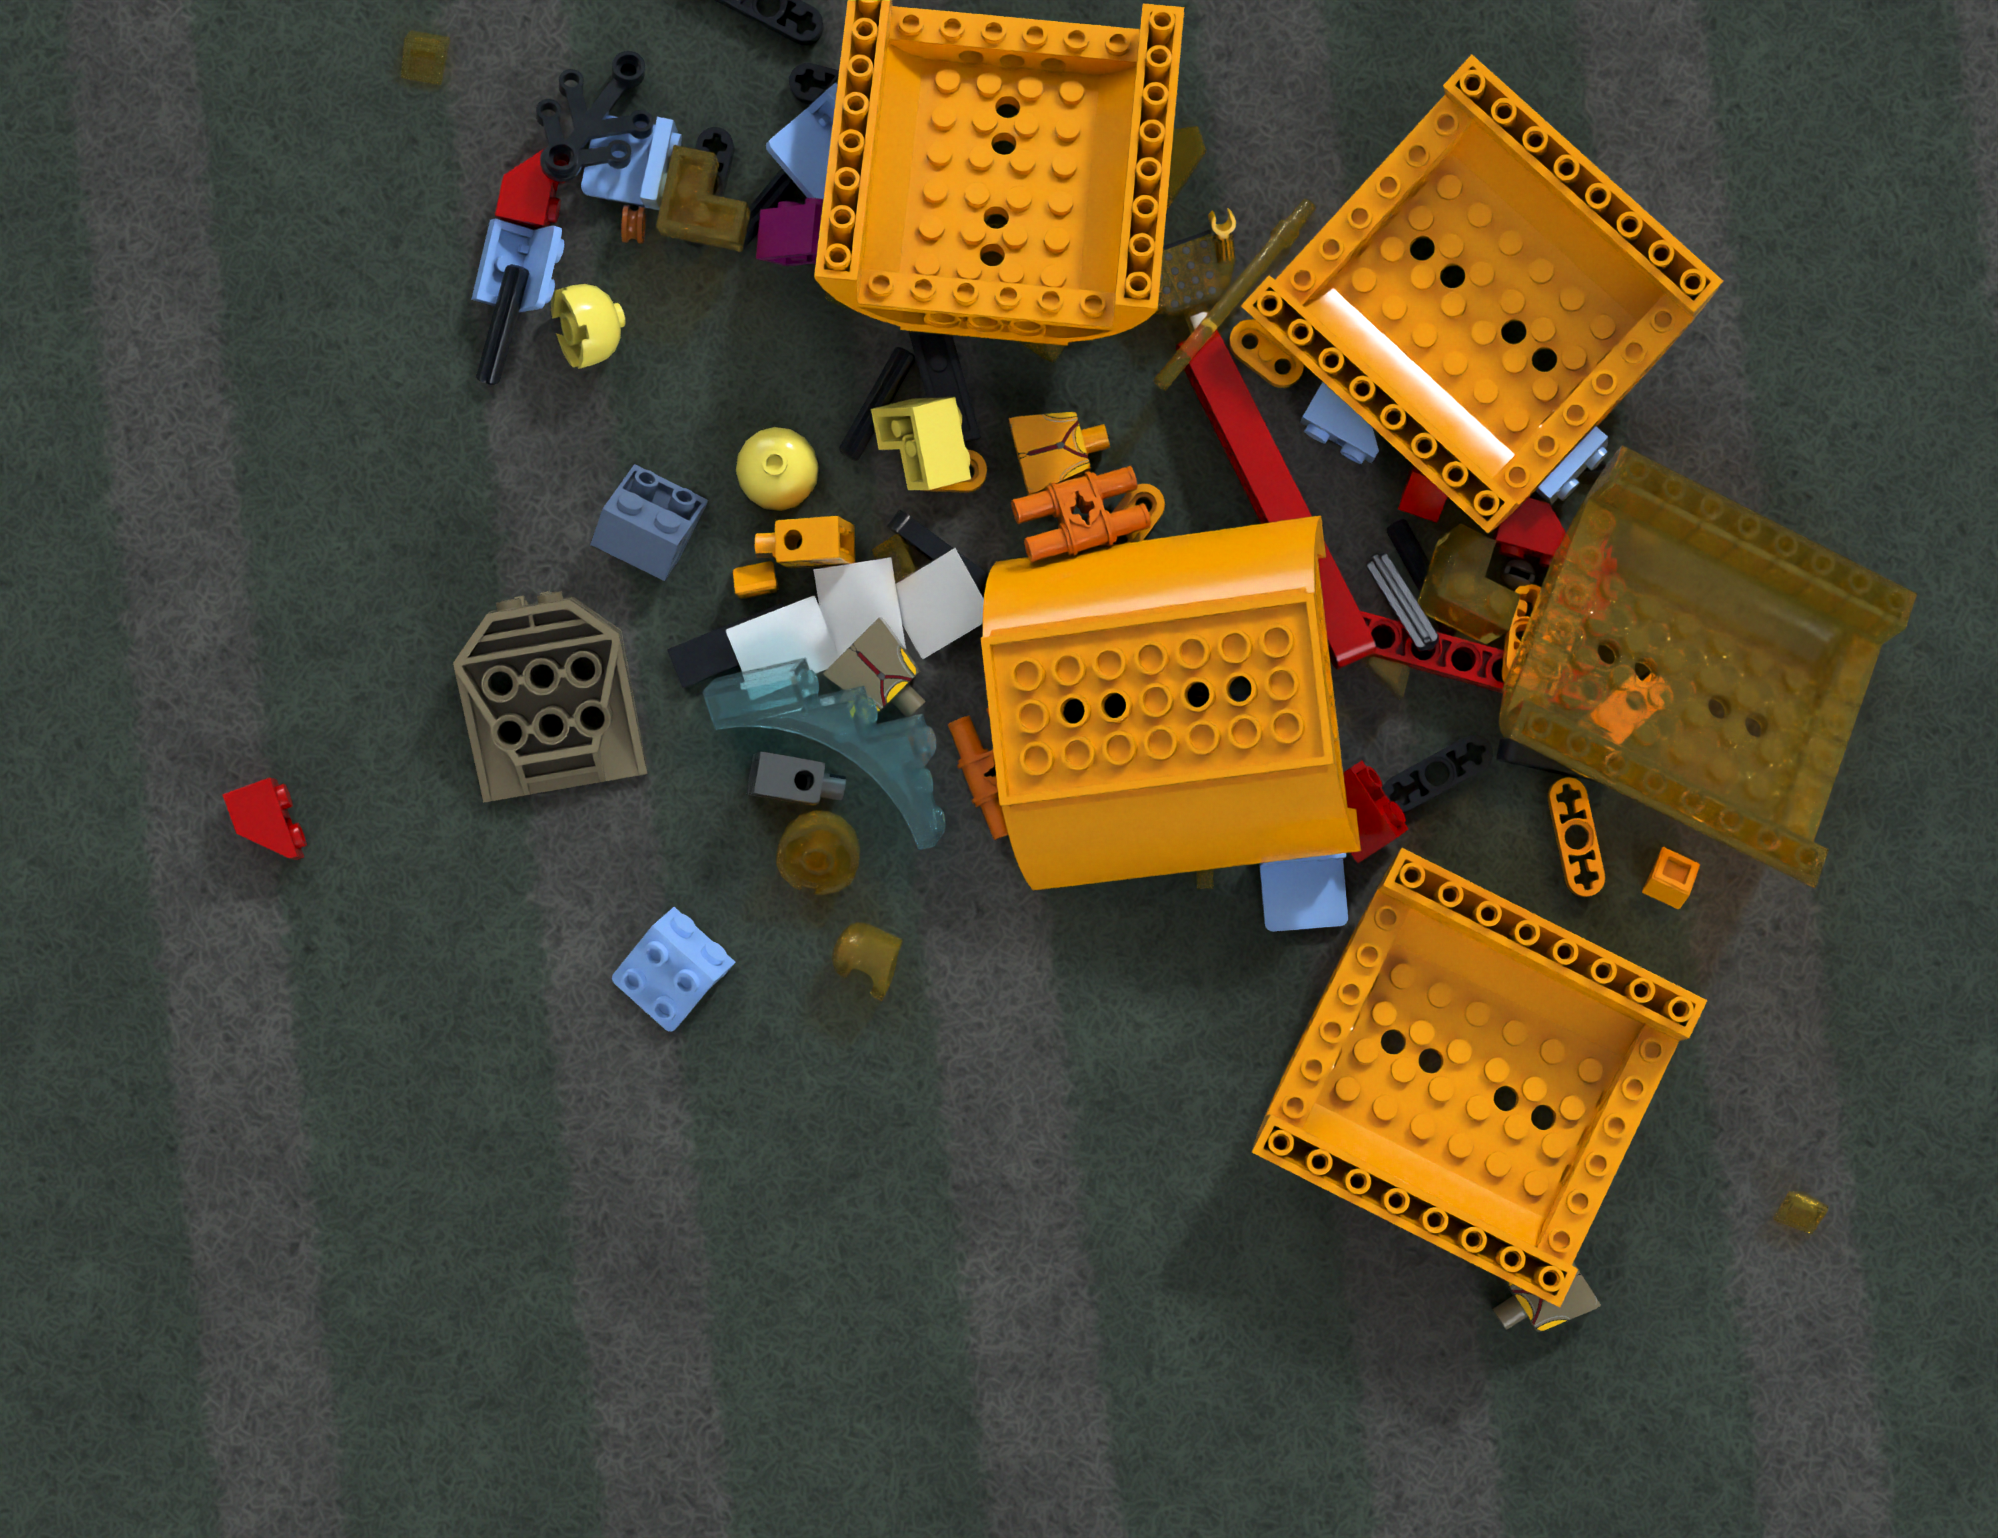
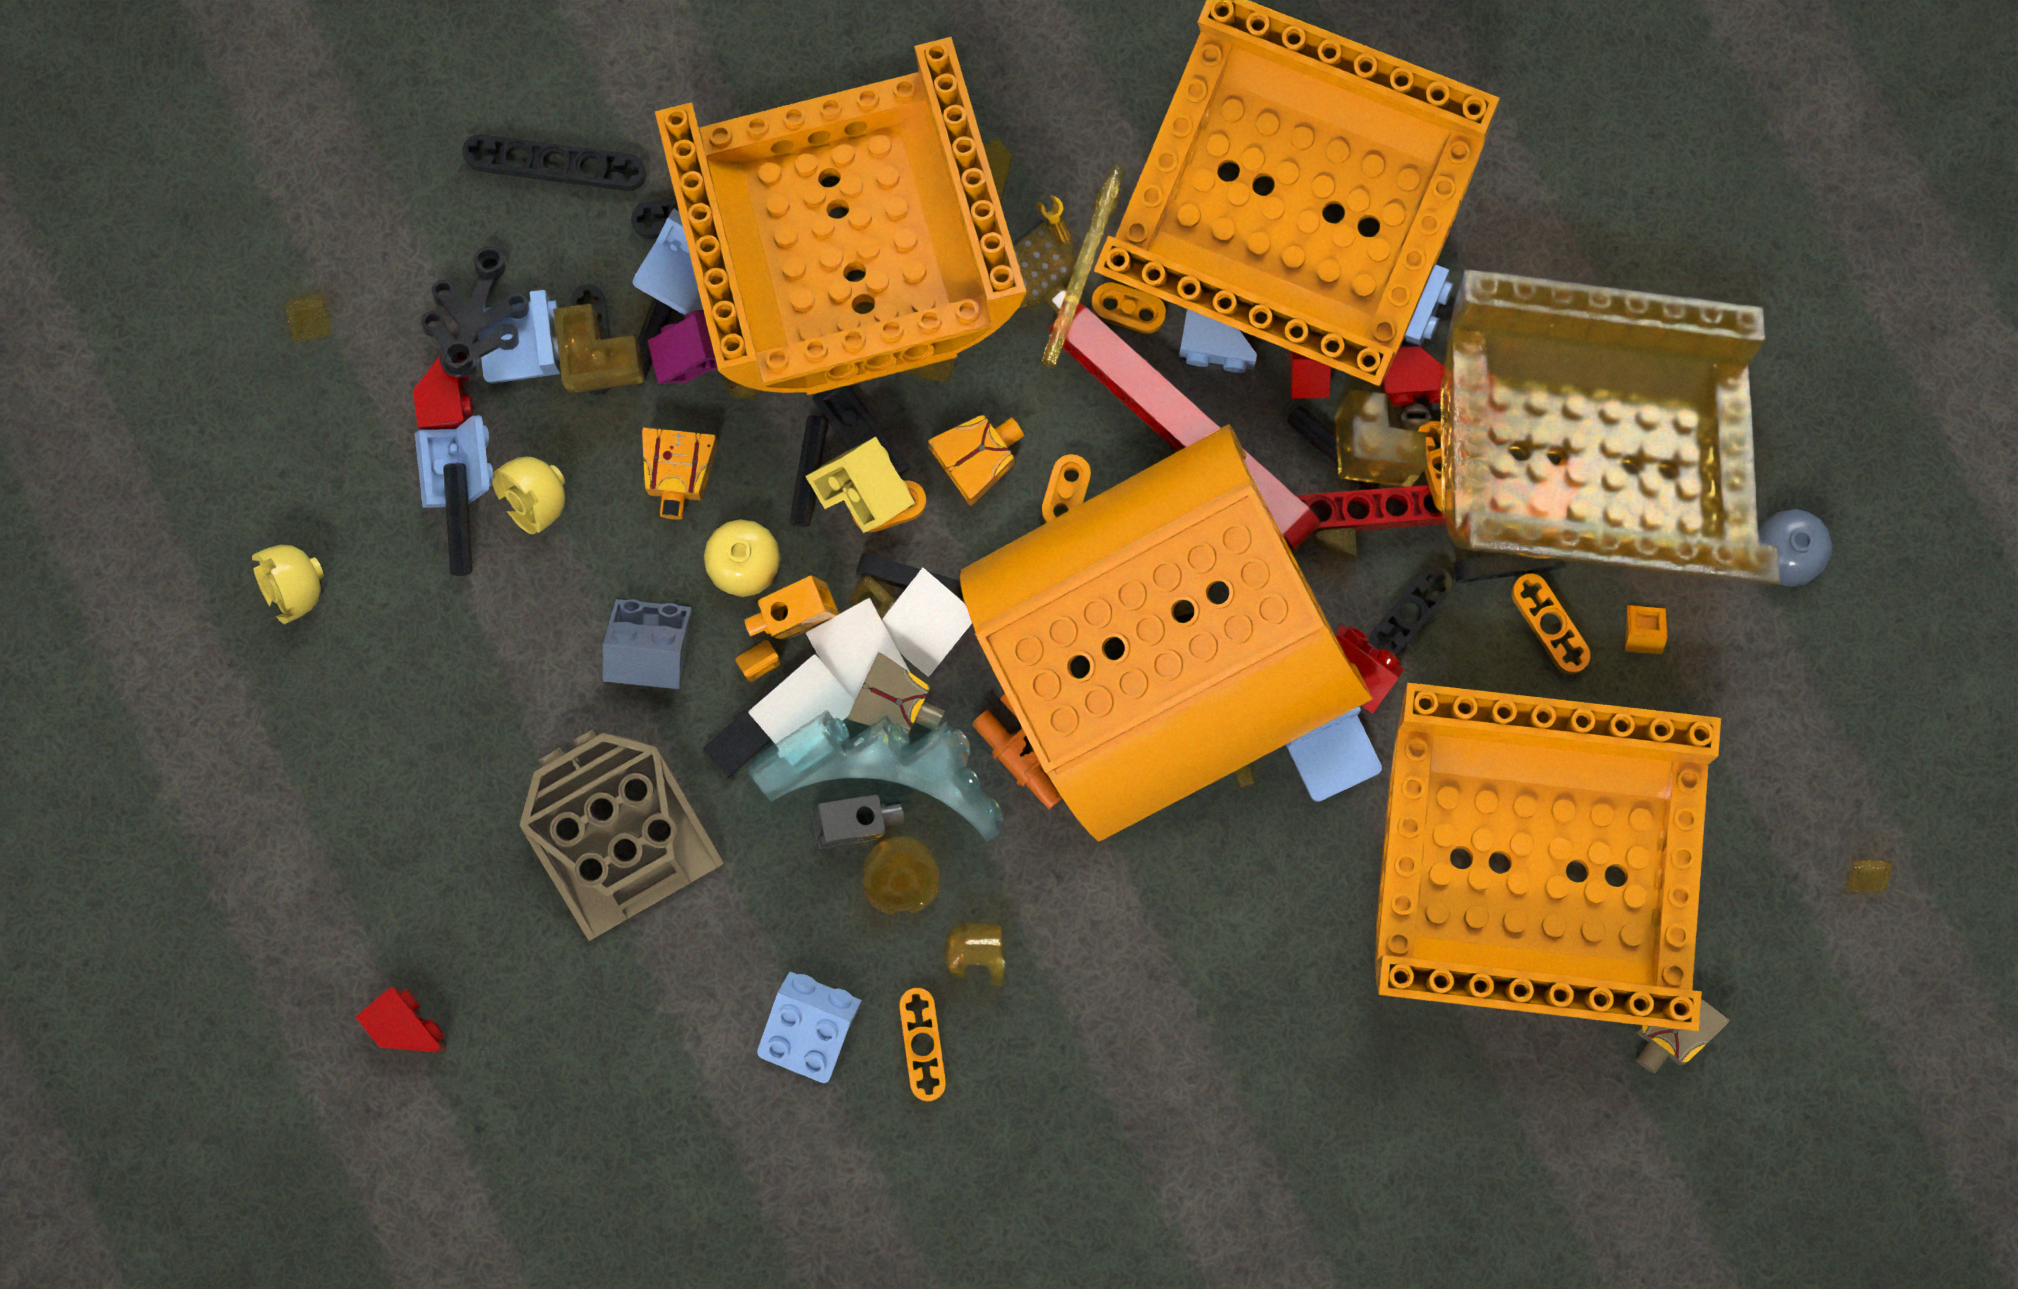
camera: 25 degrees left, 5 degrees down
(310, 325) = (288, 580): none -> light yellow cylinder
(633, 224) = (541, 393): dark orange bush -> none
(744, 351) = (677, 467): none -> light orange torso
(764, 1057) = (909, 1016): none -> light orange beam
(1088, 495) = (1020, 516): orange pin -> none
(1402, 602) = (1326, 475): axle -> none
(1860, 849) = (1801, 542): none -> sand blue cylinder

